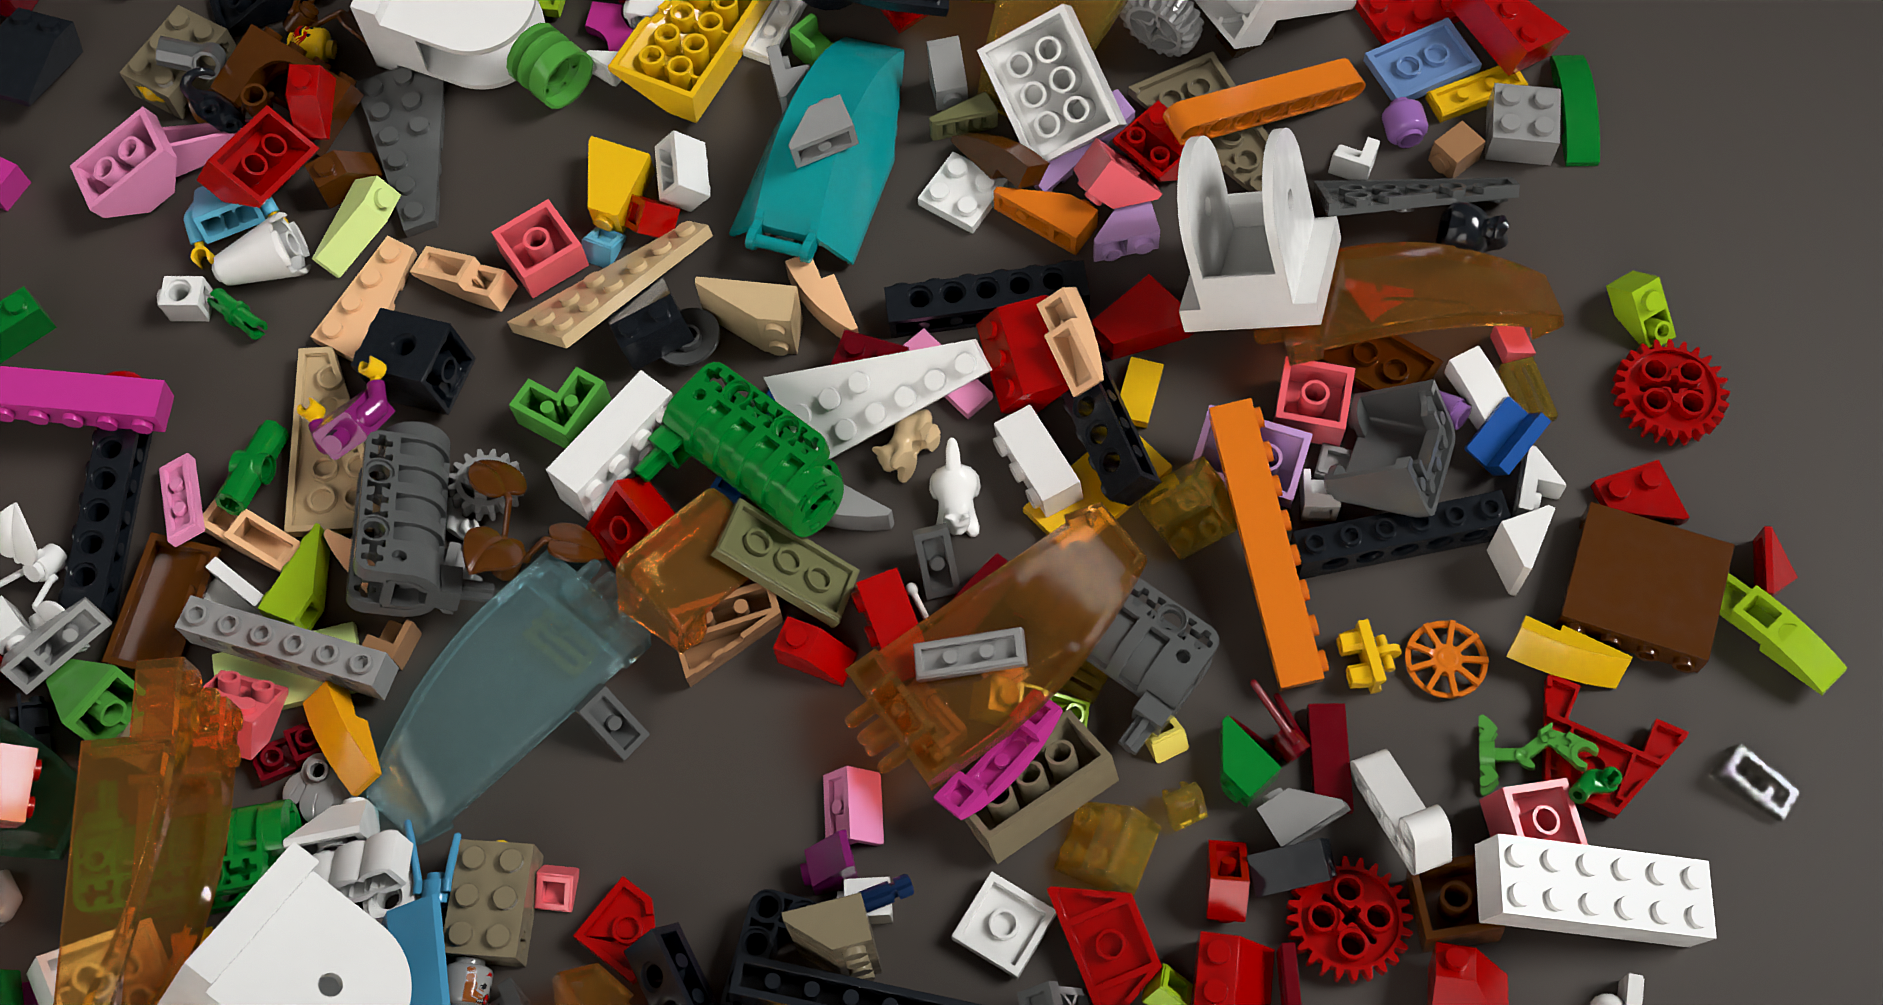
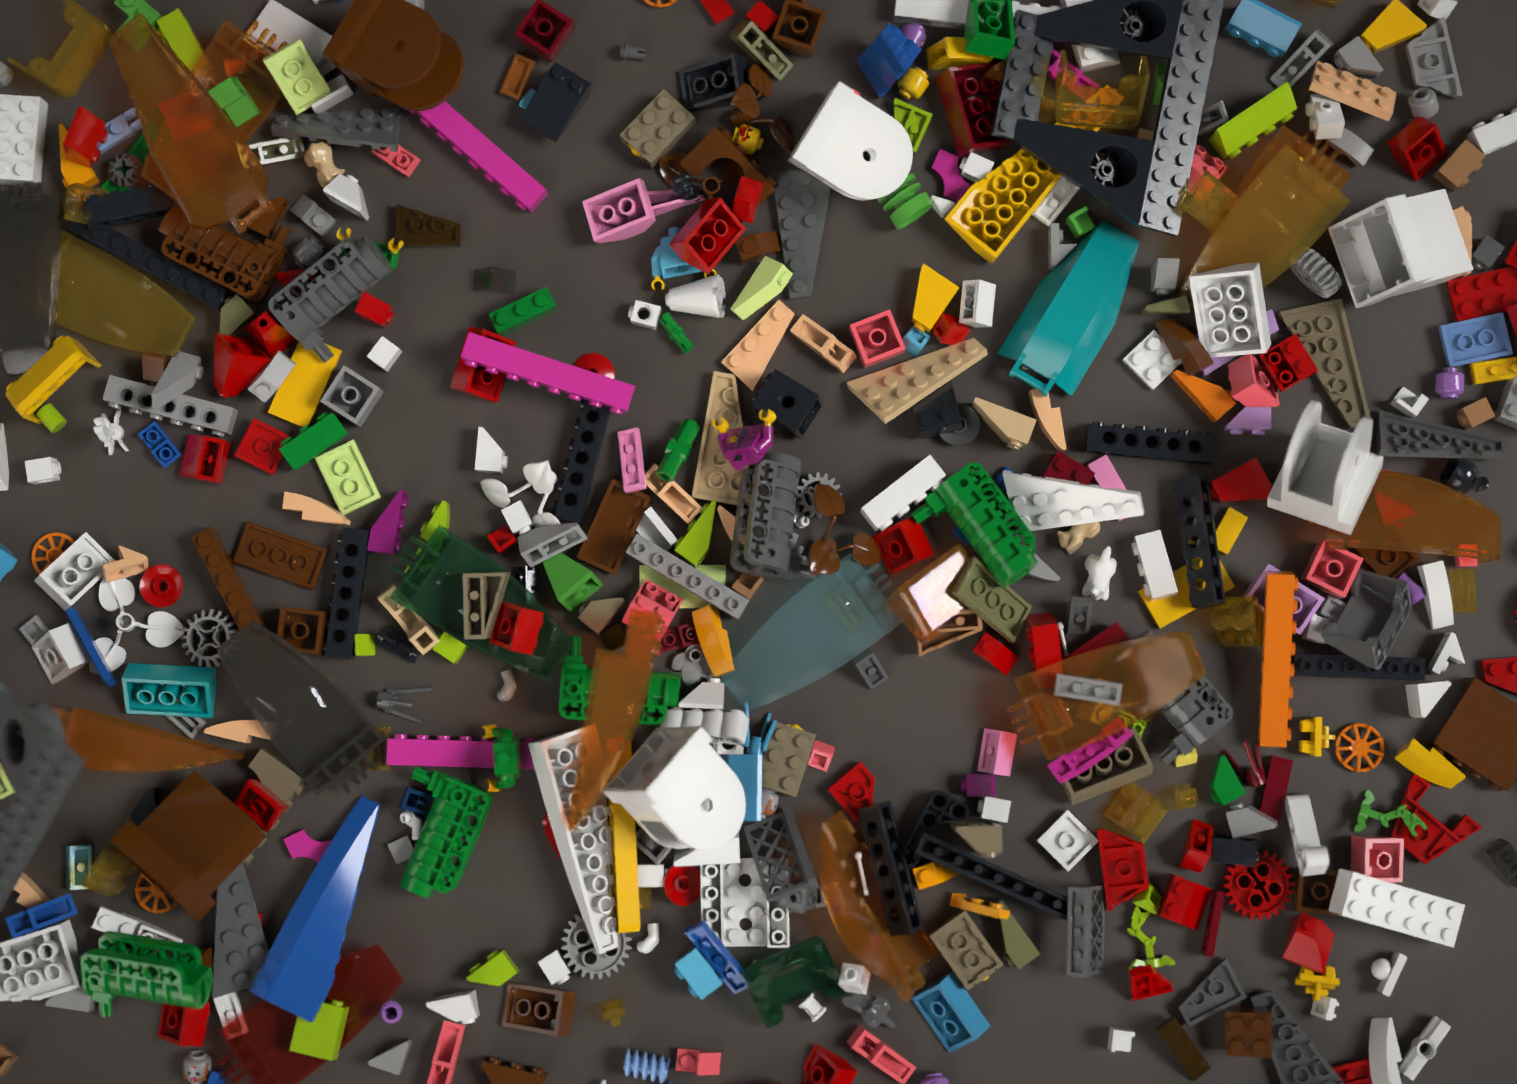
camera: 10 degrees right, 20 degrees up
(188, 55) = (678, 142): dark grey piece -> none
(561, 414) = (873, 463): bright green brick -> none
(822, 132) = (1079, 321): light grey slope -> none
(885, 893) = (1002, 812): dark blue axle -> none
(1020, 357) = (1166, 495): red slope -> none
(1072, 339) = (1197, 501): light nougat slope -> none
(1264, 100) = (1364, 352): orange beam -> none
(1506, 437) = (1440, 622): blue panel -> none
(1595, 782) = (1418, 844): green arm -> none

